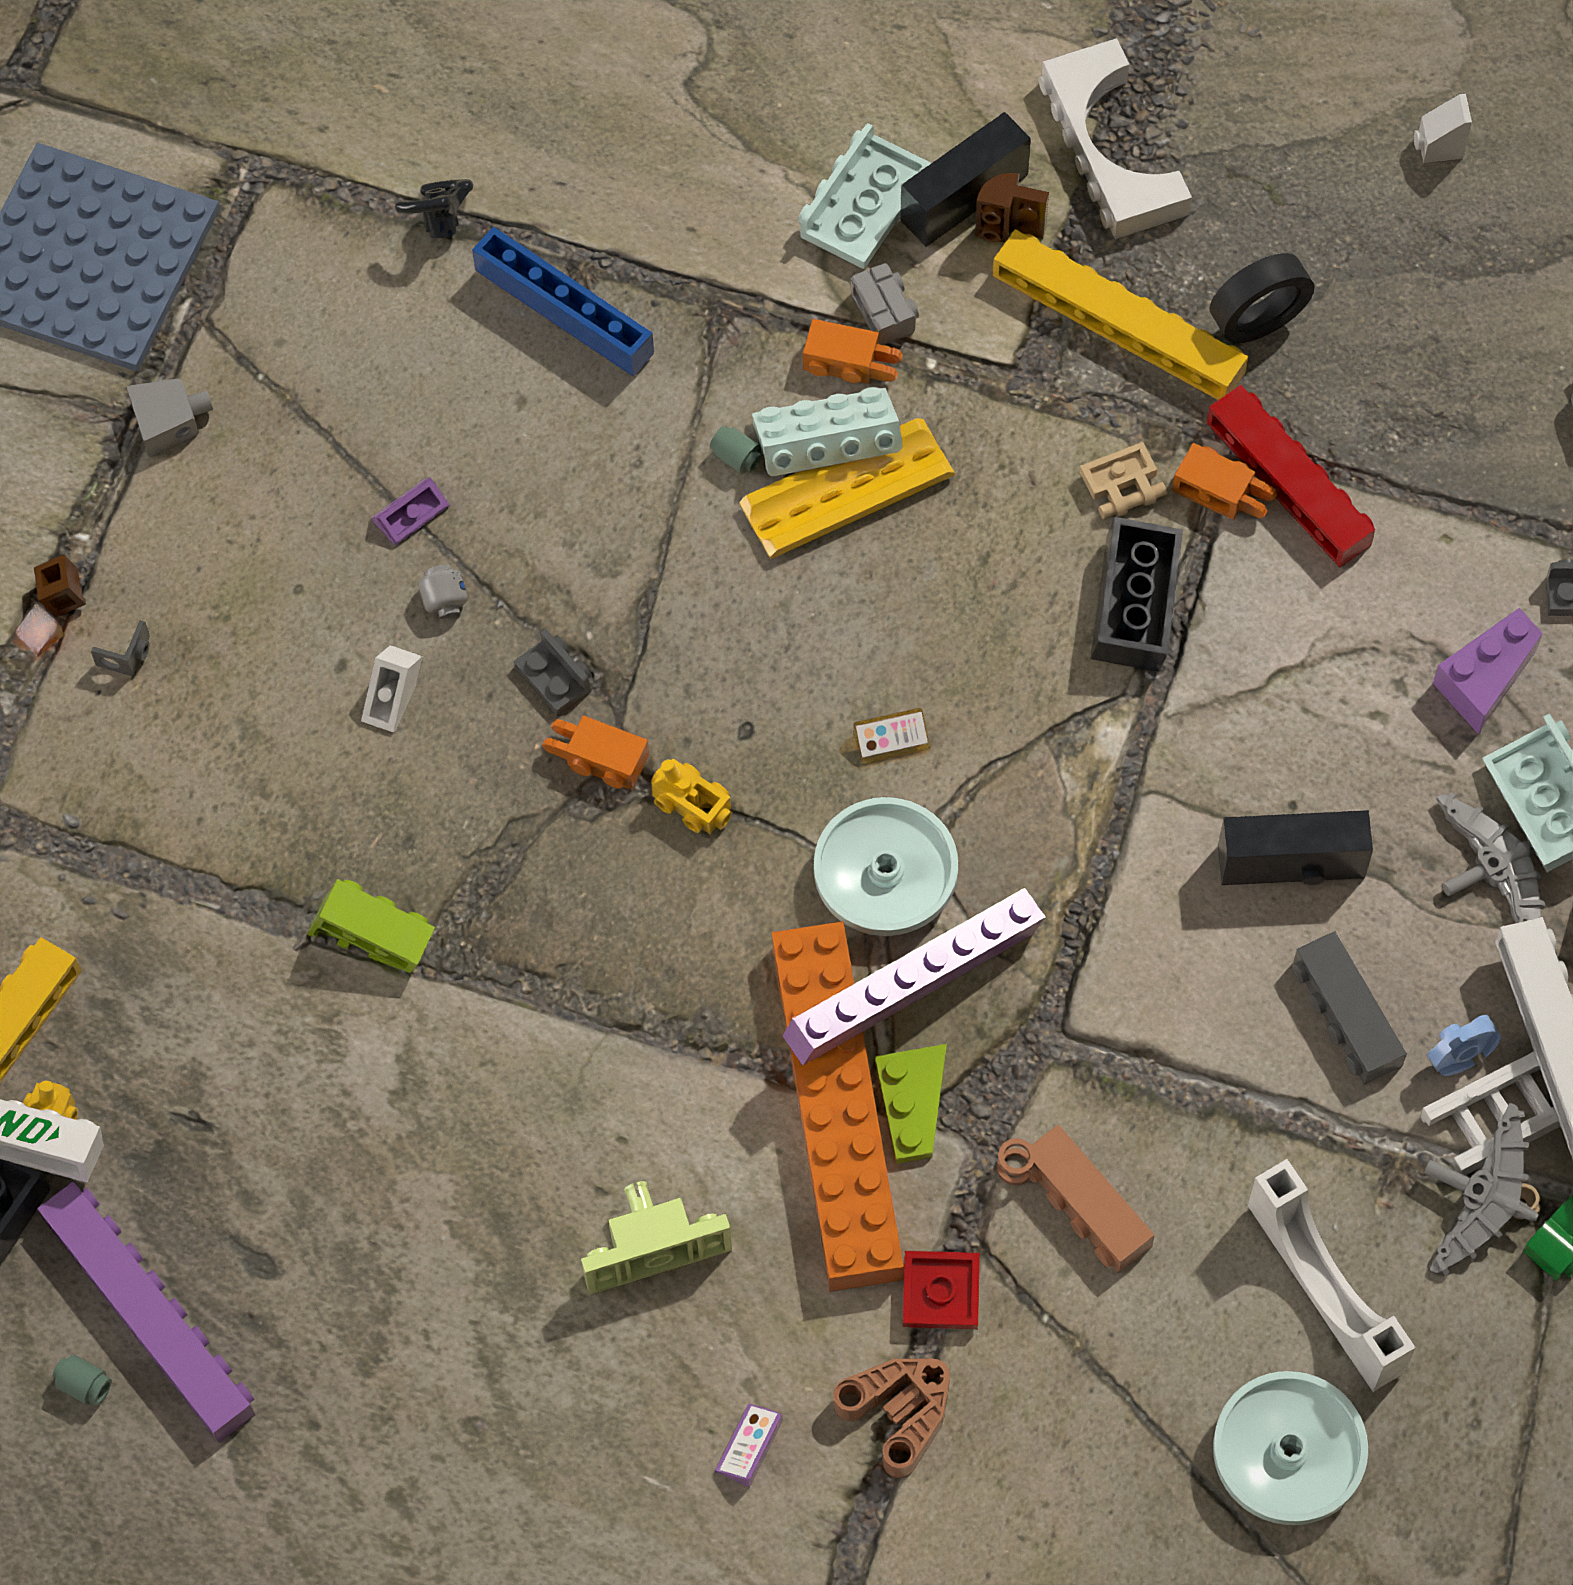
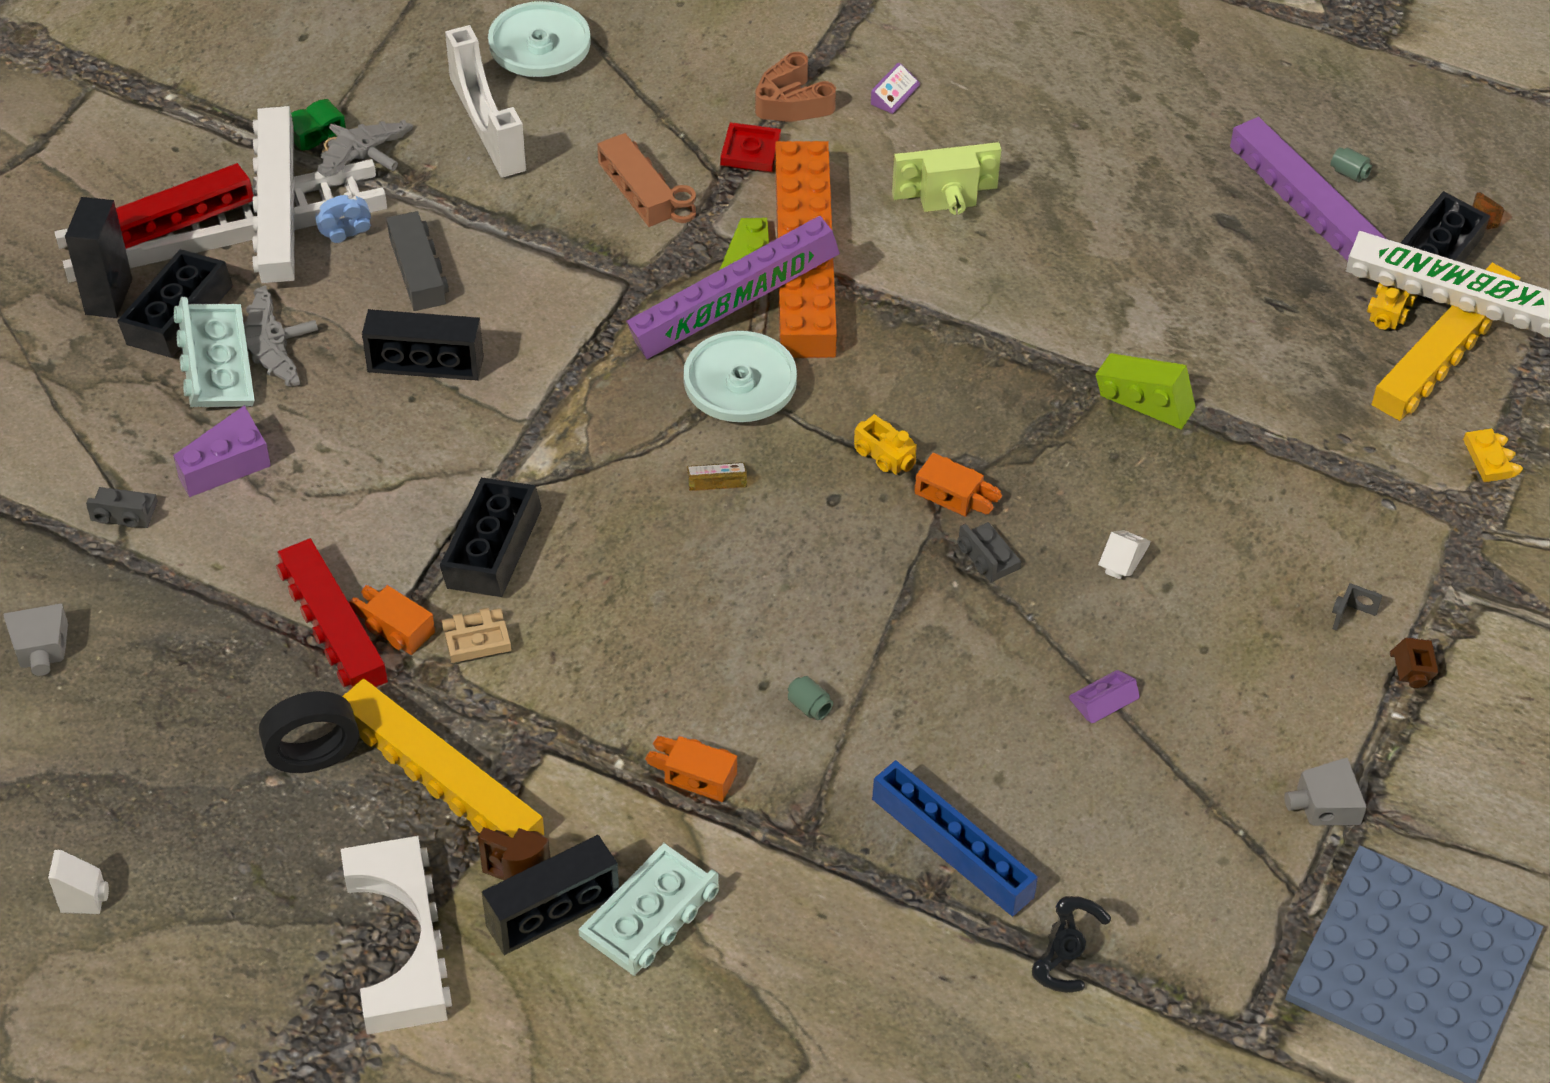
camera: 175 degrees left, 15 degrees down
(39, 630) = (1428, 631): slope -> none
(443, 591) = (1078, 616): light grey head -> none
(828, 431) = (726, 699): light aqua bracket -> none
(839, 494) = (715, 659): yellow plate -> none
(883, 303) = (653, 805): light grey brick -> none

